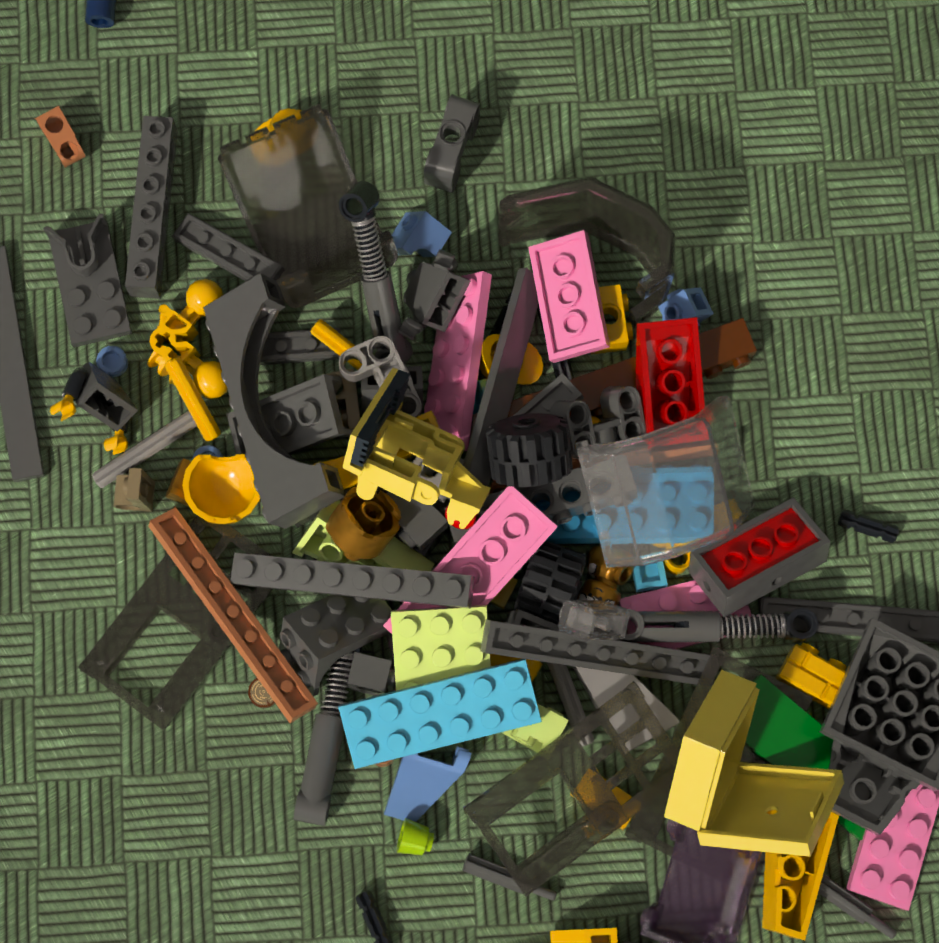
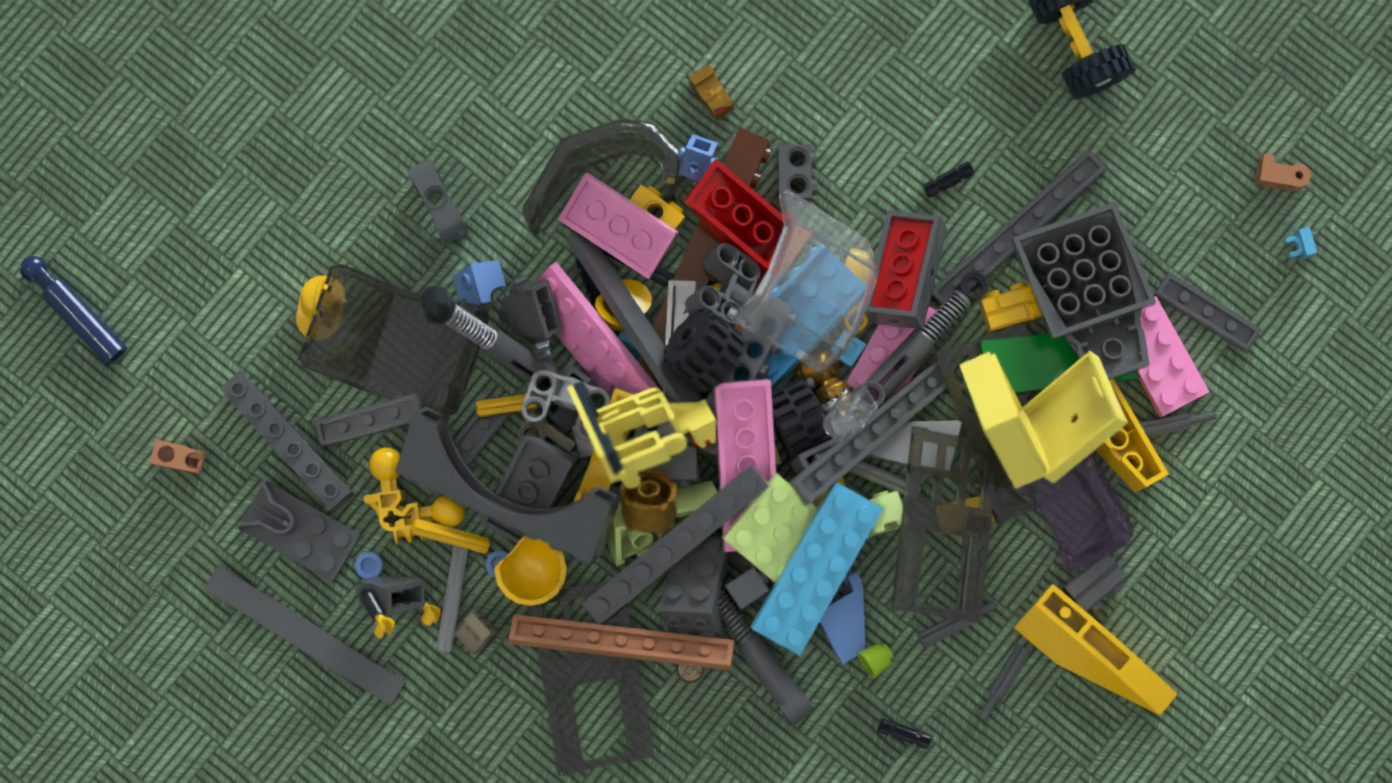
camera: 45 degrees left, 5 degrees up
(175, 490) = (496, 596): pearl gold tile -> none
(745, 395) = (789, 173): none -> dark grey brick
(749, 271) = (711, 92): none -> pearl gold leg

